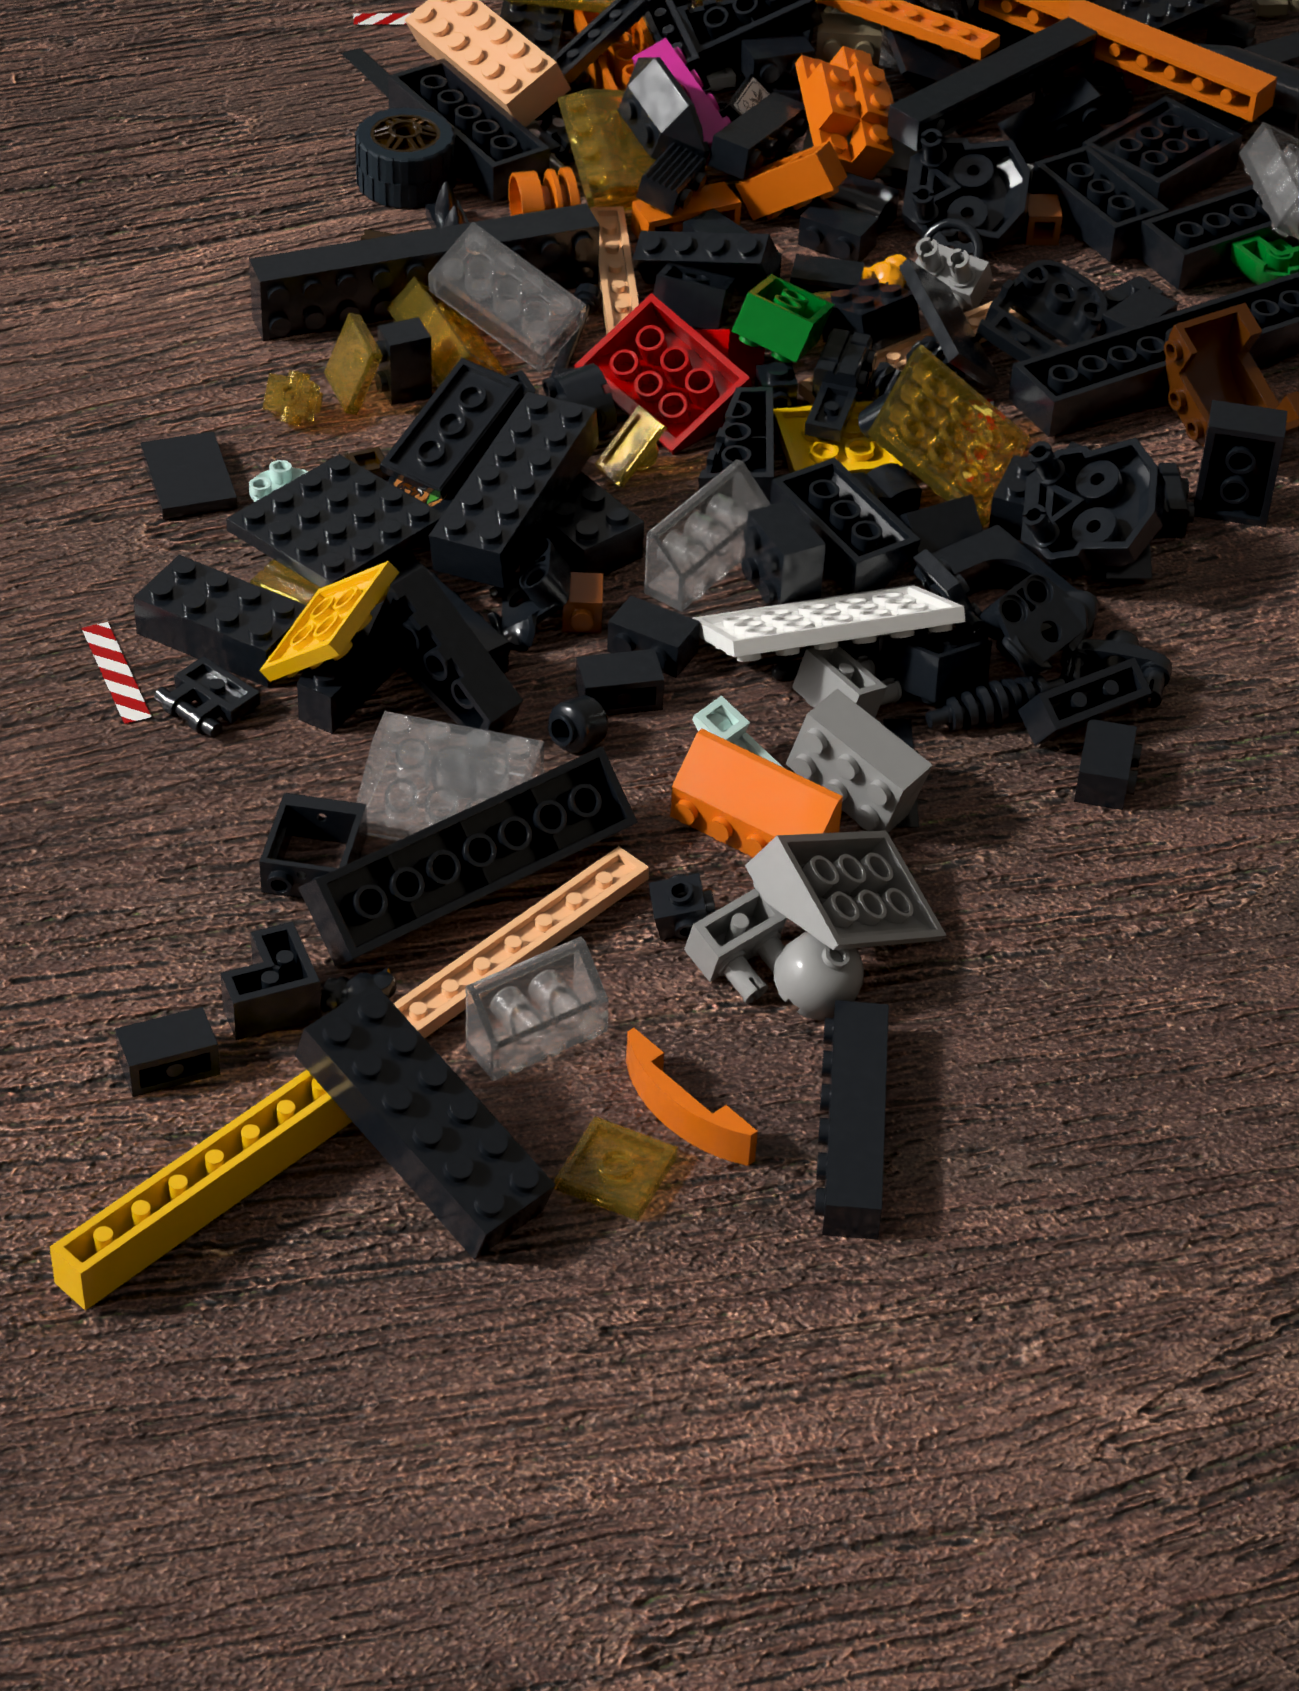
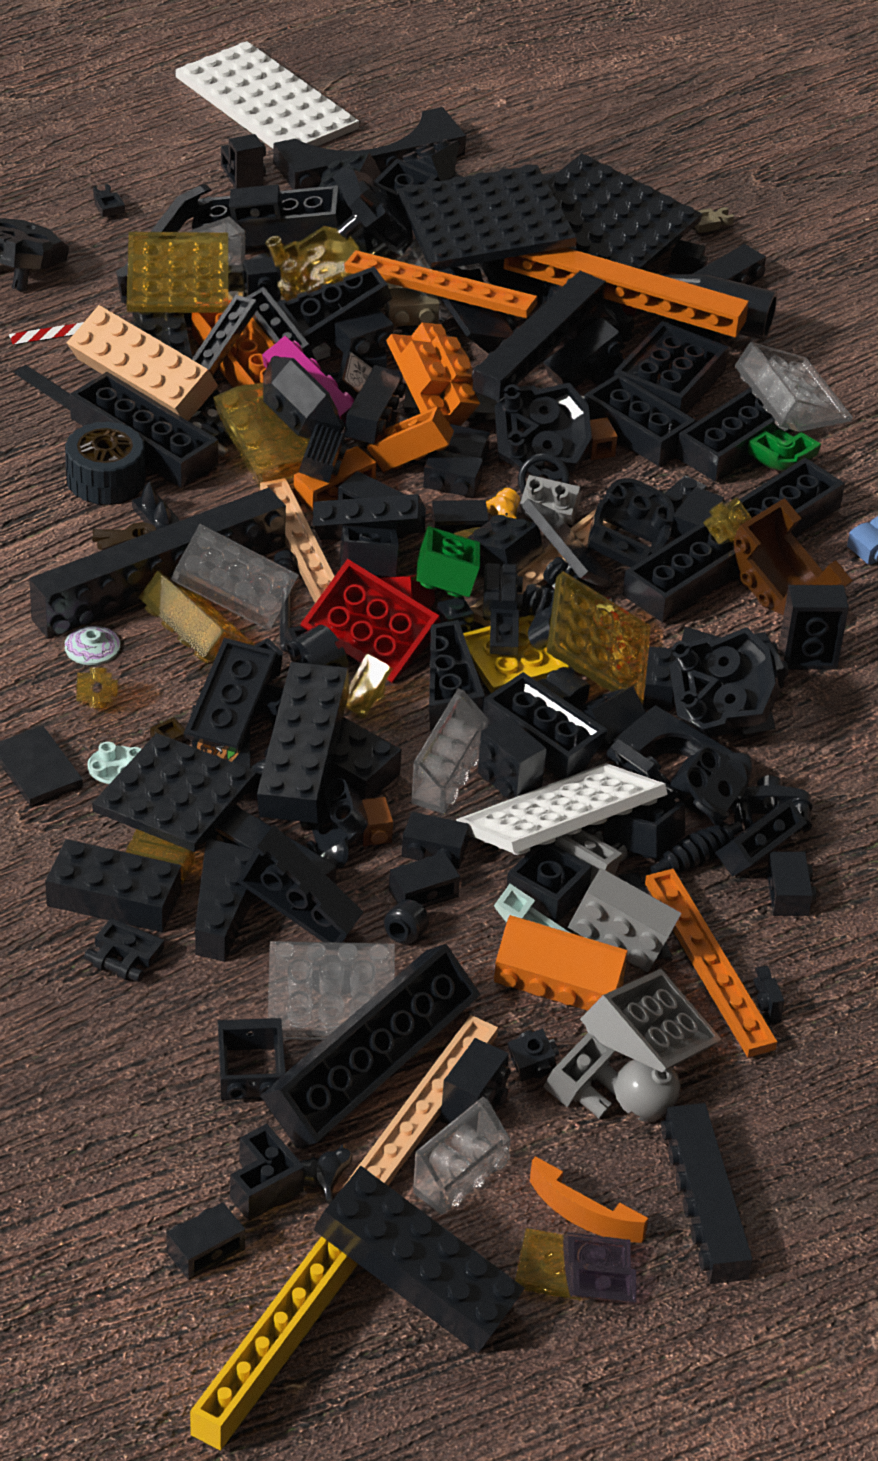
camera: 15 degrees left, 0 degrees up
(116, 673) = (44, 941): sticker -> none
(307, 354) = (92, 645): none -> dish
(330, 622) = (208, 878): yellow plate -> none
(353, 364) = (133, 651): clear yellow tile -> none
(406, 361) = (172, 643): black brick -> none
(530, 196) = (227, 483): orange wheel -> none
(596, 909) = (477, 1074): none -> black brick
(673, 1182) = (599, 1268): none -> clear purple slope
(776, 701) = (552, 879): none -> black brick
(966, 844) = (713, 966): none -> orange plate
(1028, 894) = (770, 997): none -> black plate
(1157, 321) = (726, 520): none -> clear yellow brick

